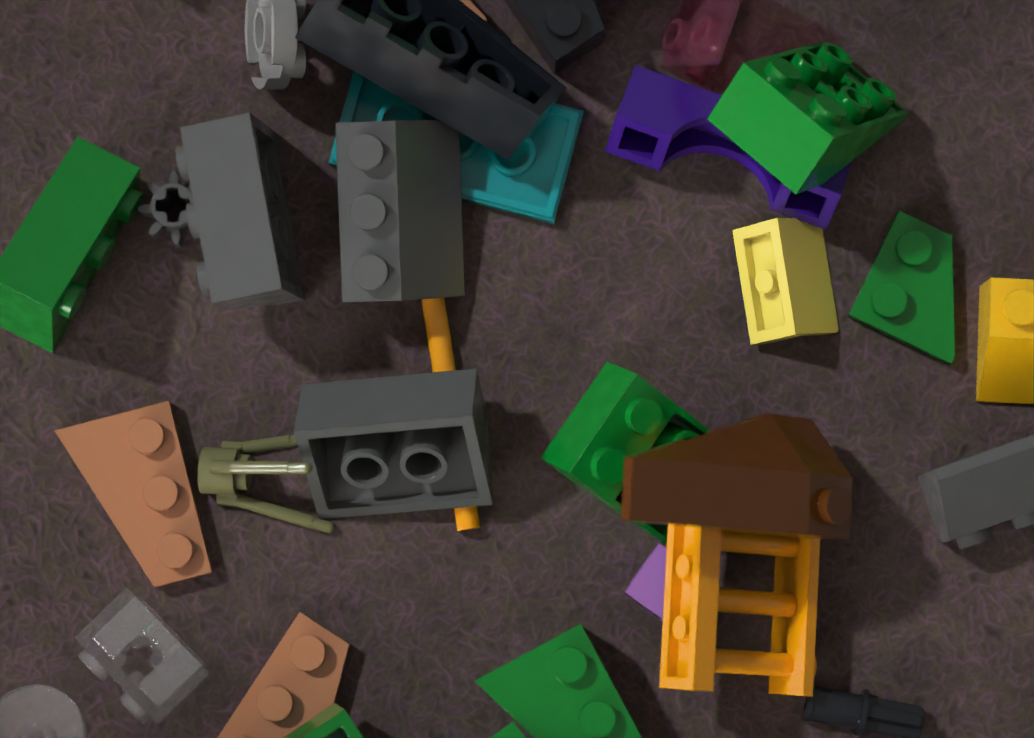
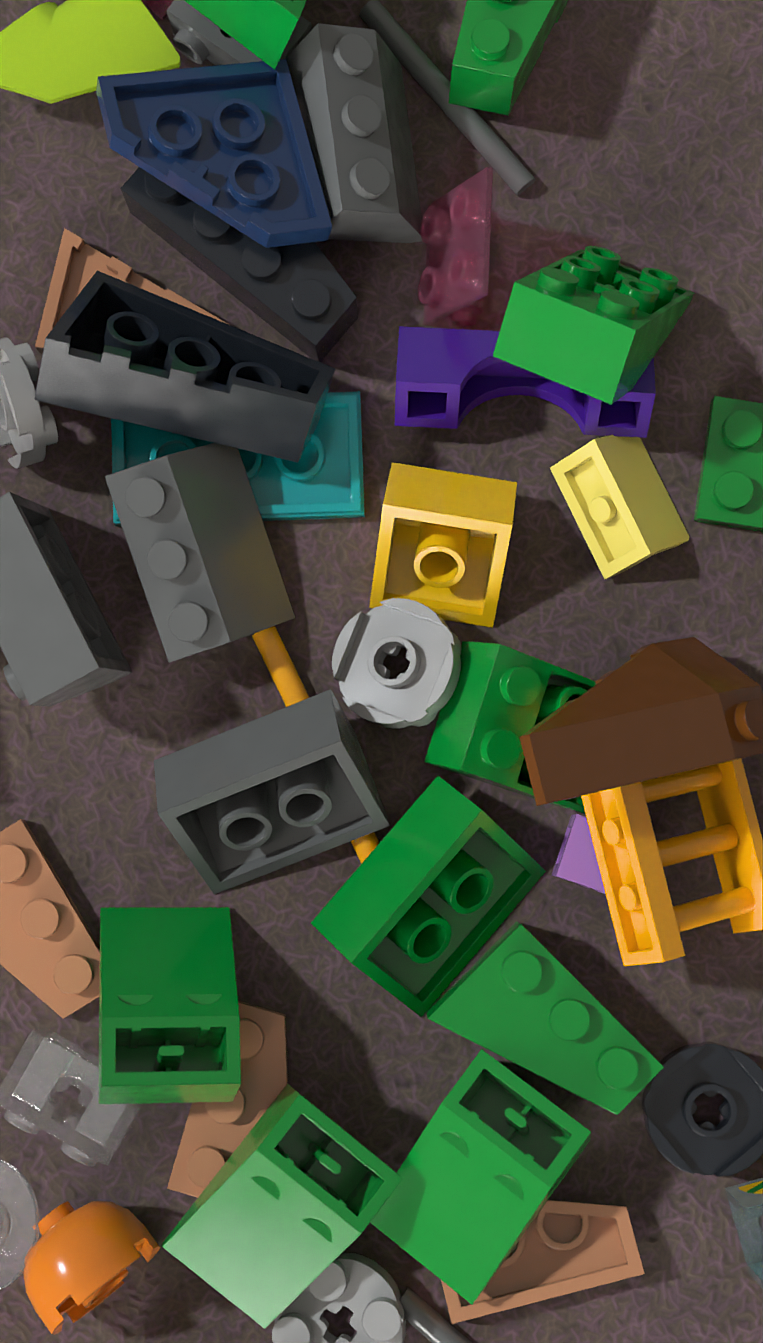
camera: 10 degrees left, 0 degrees up
(229, 469) = (106, 872): olive plant -> none
(251, 602) = (167, 1006): none -> green slope
(508, 577) = (428, 896): none -> green slope
(549, 395) = (413, 695): none -> light grey plate
(614, 270) = (444, 542): none -> yellow slope

